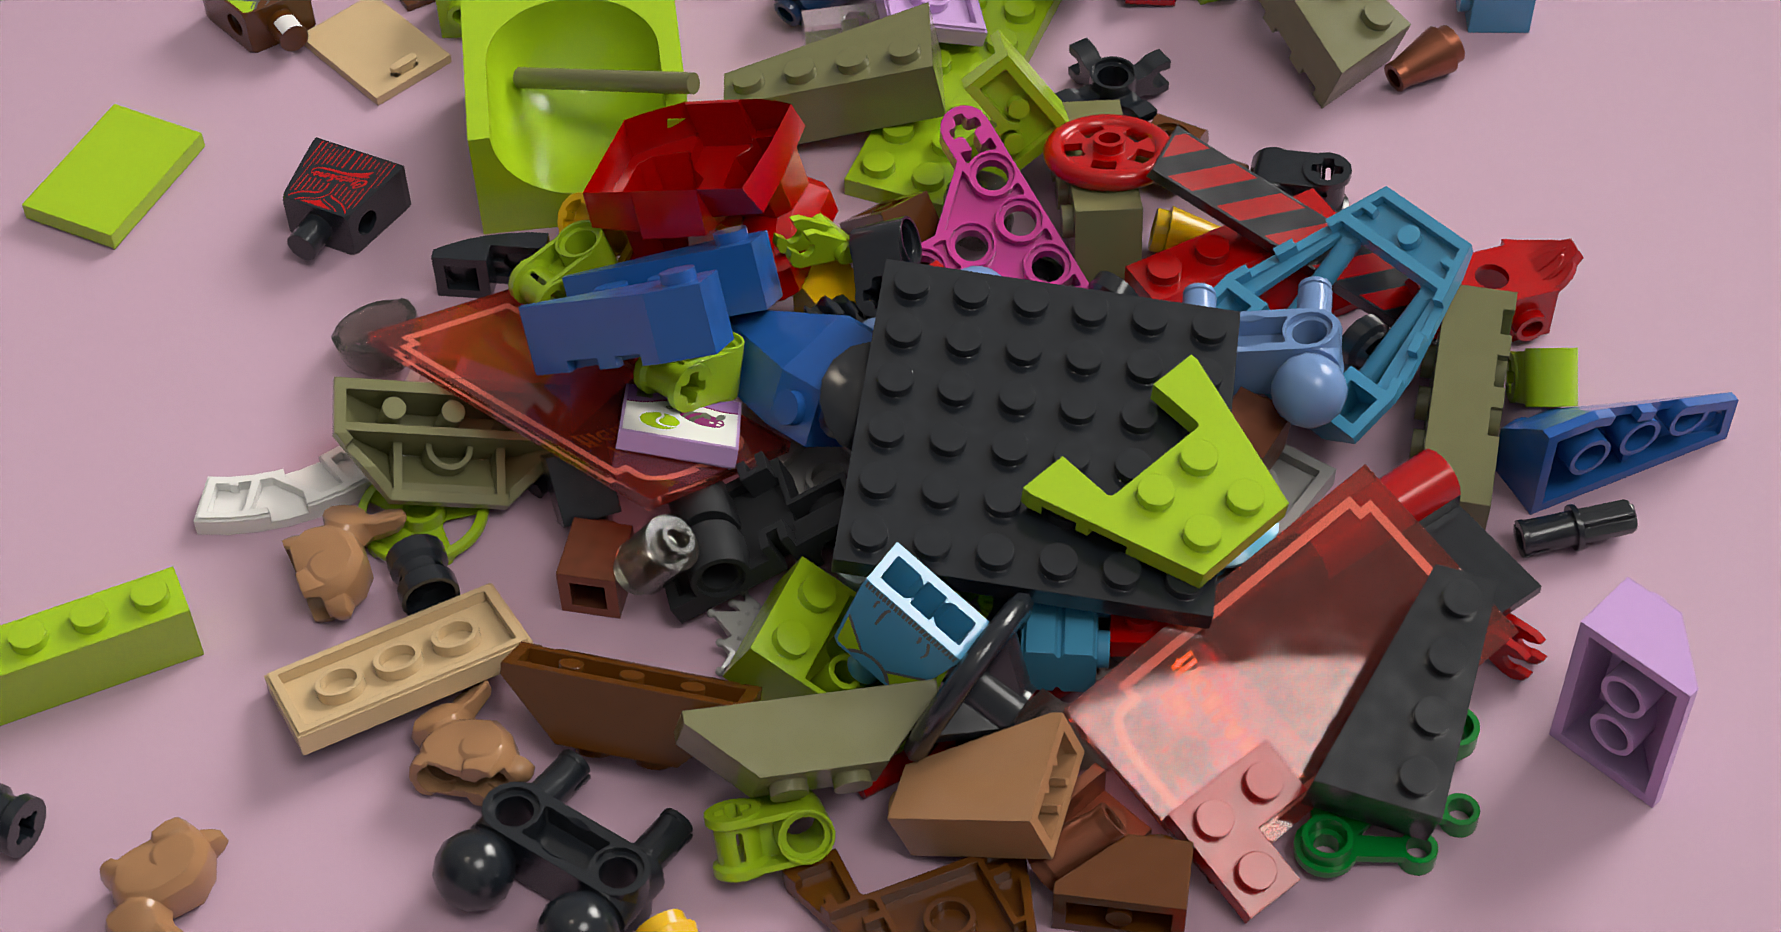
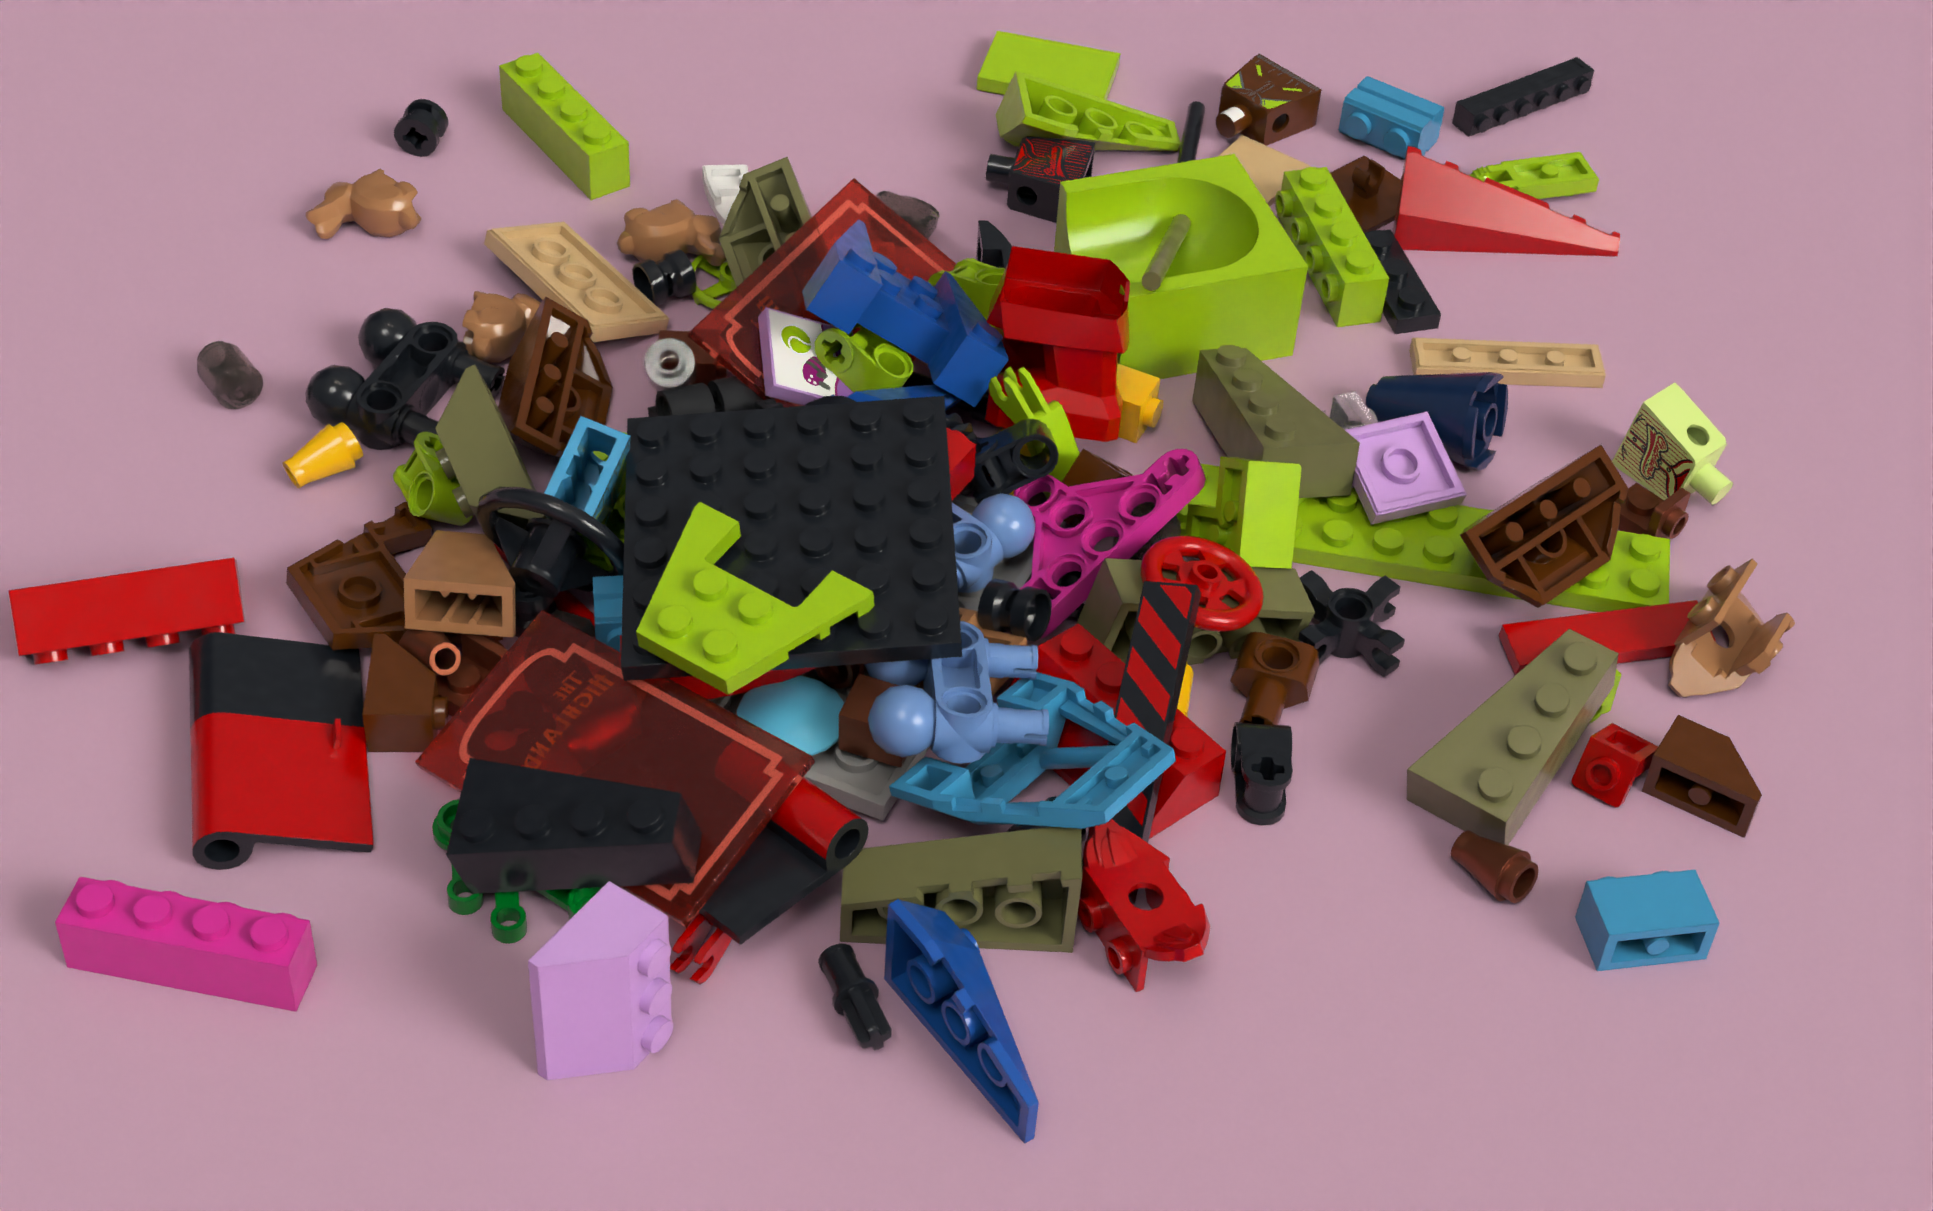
camera: 75 degrees right, 5 degrees down
(247, 159) = (1055, 111): none -> lime wedge
(327, 82) = (1191, 132): none -> black bar
(1226, 830) = (444, 749): plate -> none
(1543, 377) = (1029, 955): lime piece -> none

